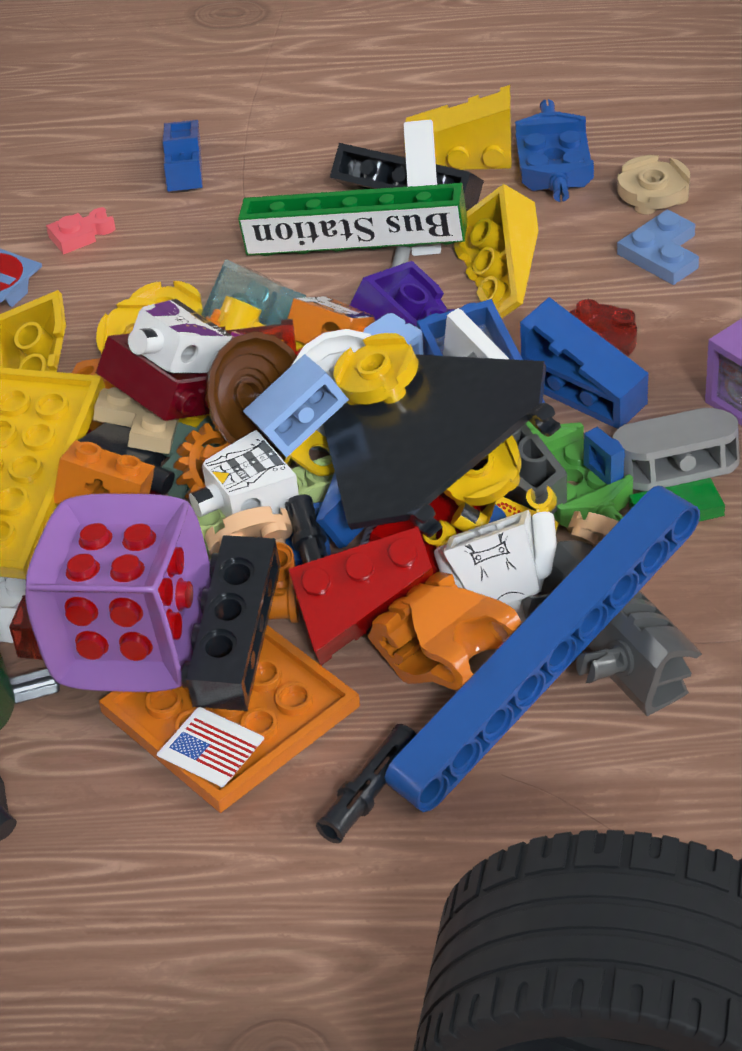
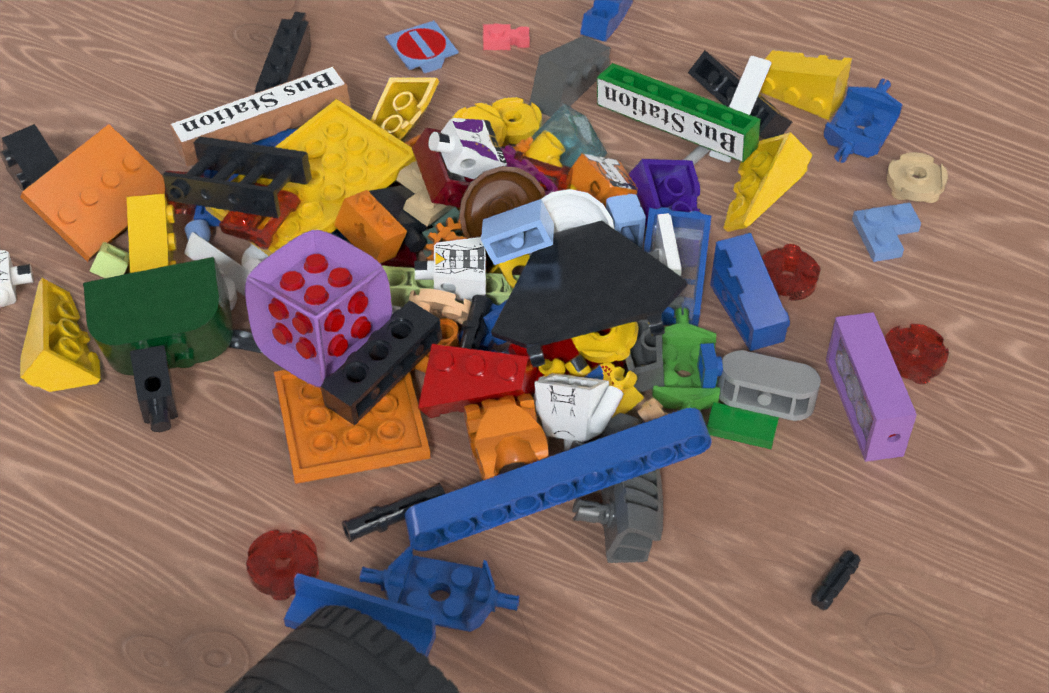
camera: 25 degrees right, 5 degrees up
(193, 234) = (568, 73): none -> dark grey wedge
(210, 746) = (315, 437): sticker -> none
(283, 930) = (274, 545): none -> clear red plate
(376, 370) = (584, 232): yellow plate -> none
(386, 922) = (409, 622): none -> blue panel
(452, 840) = (471, 589): none -> blue plate

